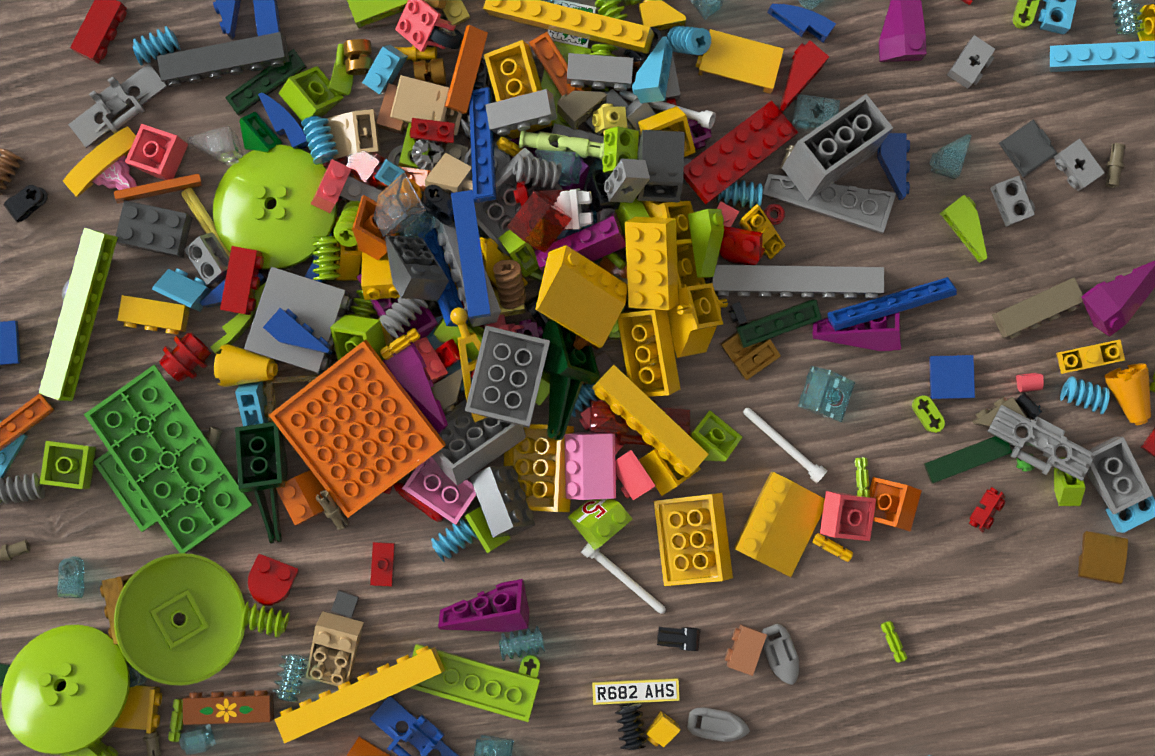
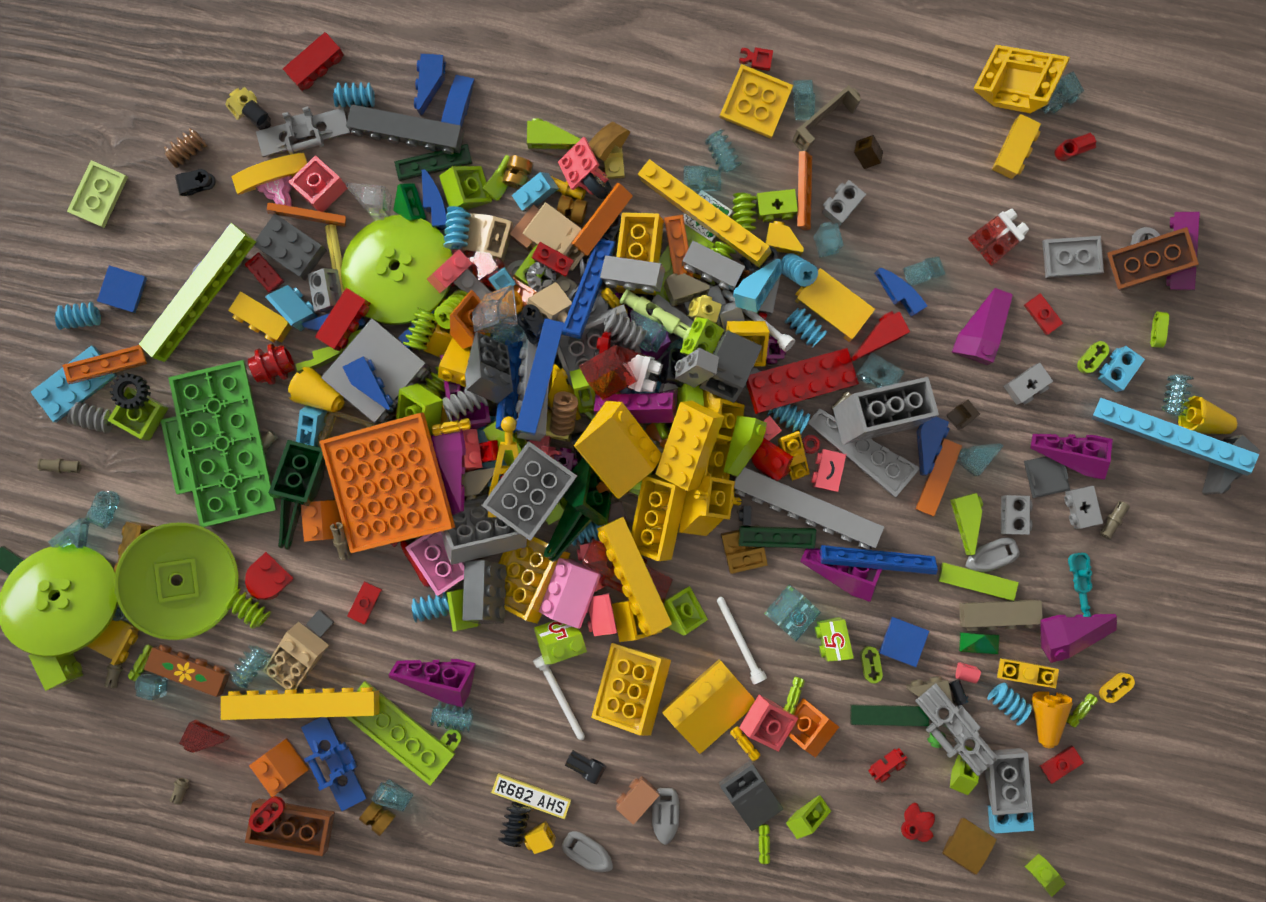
camera: 20 degrees right, 0 degrees up
(38, 443) = (118, 391): none -> black tyre
(42, 100) = (237, 101): none -> light yellow brick
(53, 613) = (75, 533): none -> clear light blue slope
(63, 106) = (256, 115): none -> black piece
(137, 266) = (264, 272): none -> red plate
(720, 96) = (806, 327): none -> medium azure piece
(804, 233) = (828, 470): none -> coral brick
(860, 597) = (750, 795): none -> dark grey slope
(880, 403) = (834, 639): none -> lime slope
(917, 120) = (963, 414): none -> dark brown panel
(919, 195) = (938, 478): none -> orange tile
(928, 595) = (808, 817): none -> lime slope
(1002, 285) = (978, 581): none -> lime tile
(1007, 252) = (993, 555): none -> light grey piece
(1029, 347) = (979, 643): none -> green slope
(1044, 554) = (920, 822): none -> red plate
(1059, 112) = (1085, 455): none -> magenta wedge
(1101, 229) = (1080, 567): none -> teal piece

